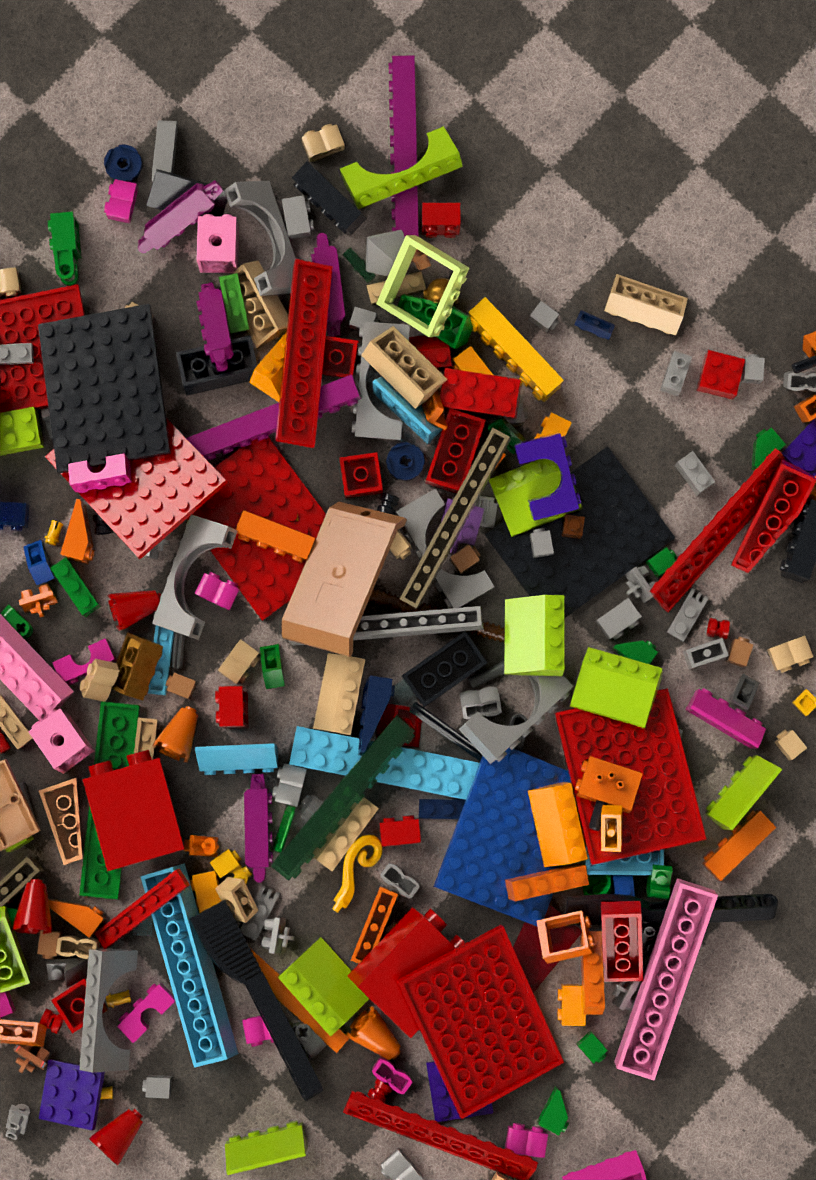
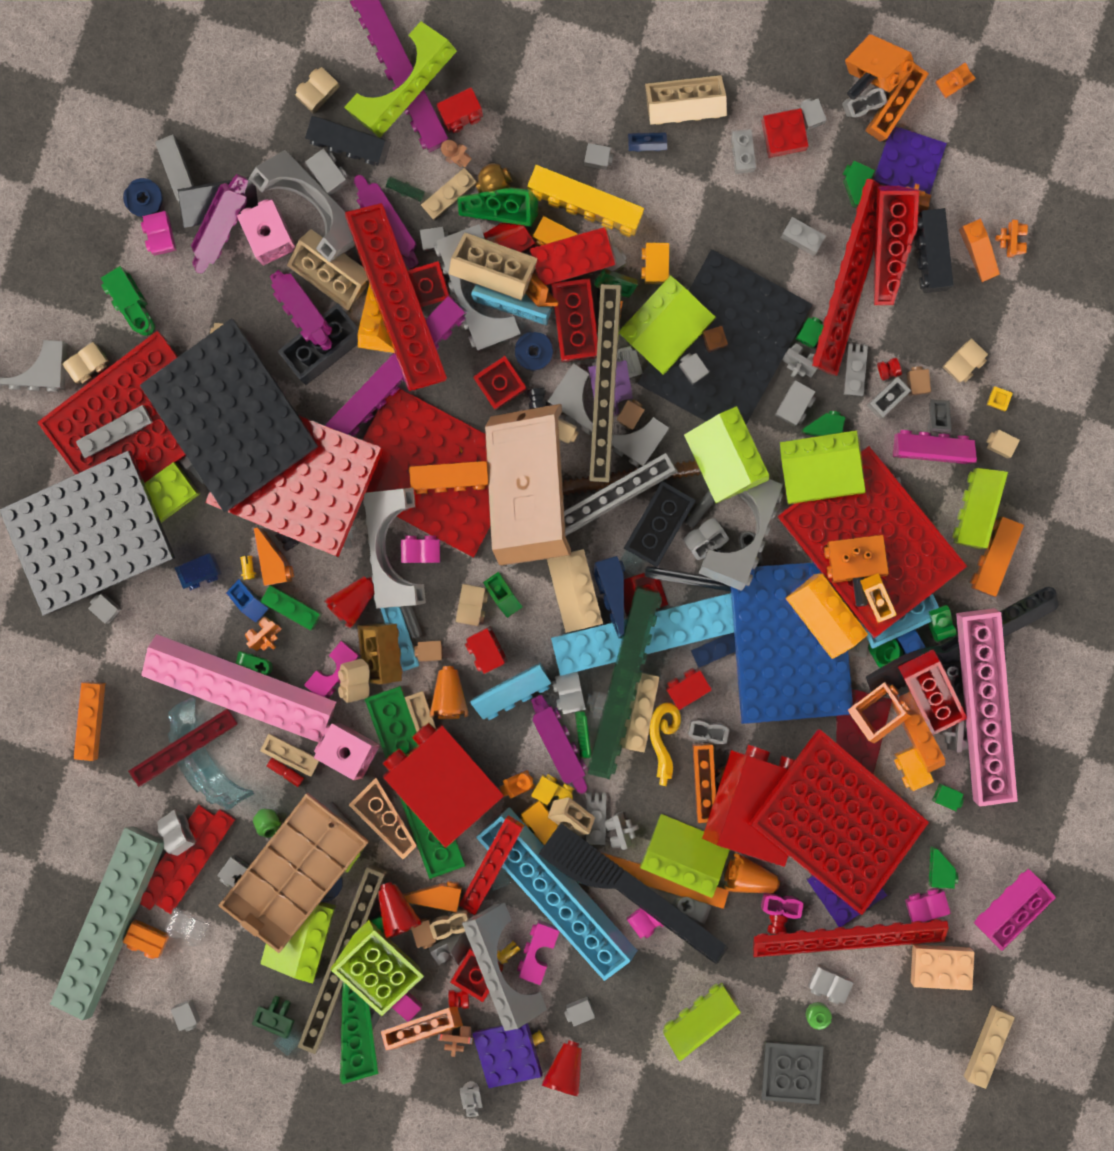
camera: 20 degrees left, 5 degrees up
(116, 473) = (277, 489): arch -> none
(233, 303) = (308, 279): bright green plate -> none
(382, 251) = (425, 166): light grey slope -> none
(398, 272) = (445, 181): yellowish green window -> none
(547, 882) = (841, 671): orange brick -> none
(564, 497) = (695, 316): dark purple arch -> none

